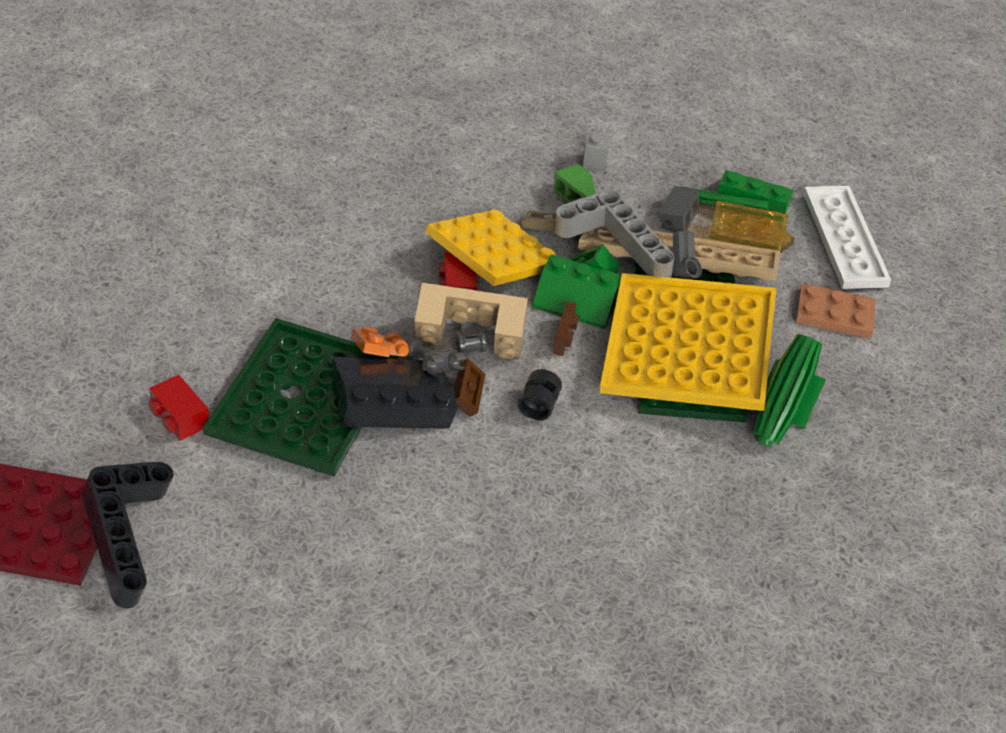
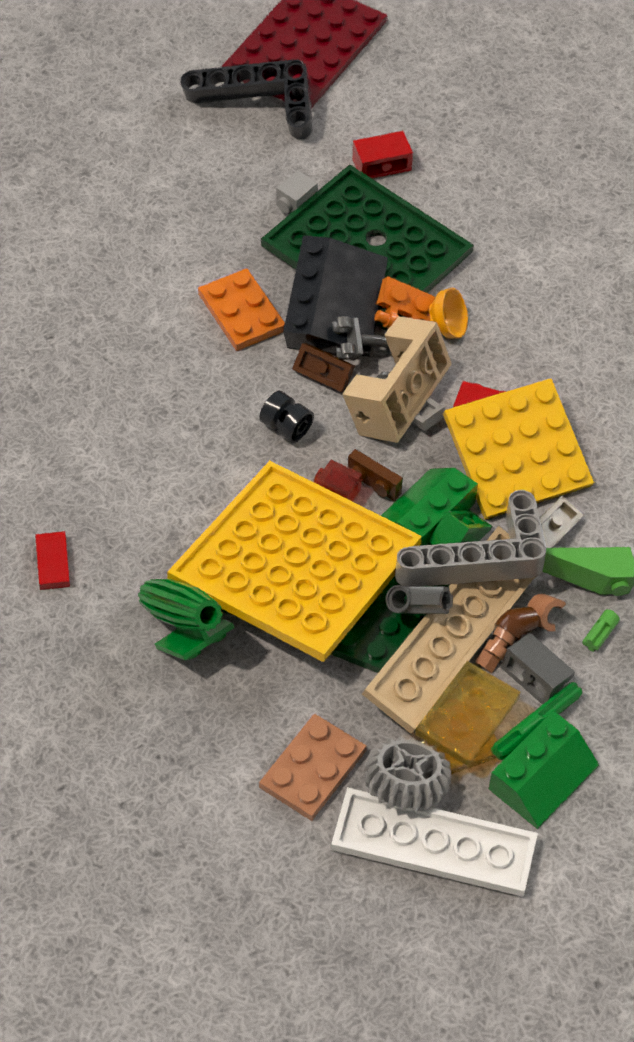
camera: 115 degrees right, 10 degrees up
(260, 459) = (294, 191): none -> light grey brick
(370, 314) = (449, 313): none -> light orange piece
(422, 469) = (241, 309): none -> orange plate
(588, 348) = (339, 480): none -> clear red brick
(623, 187) = (601, 630): none -> bright green piece
(655, 216) = (514, 624): none -> nougat piece
(776, 519) = (52, 560): none -> red tile
(821, 249) = (407, 774): none -> light grey gear

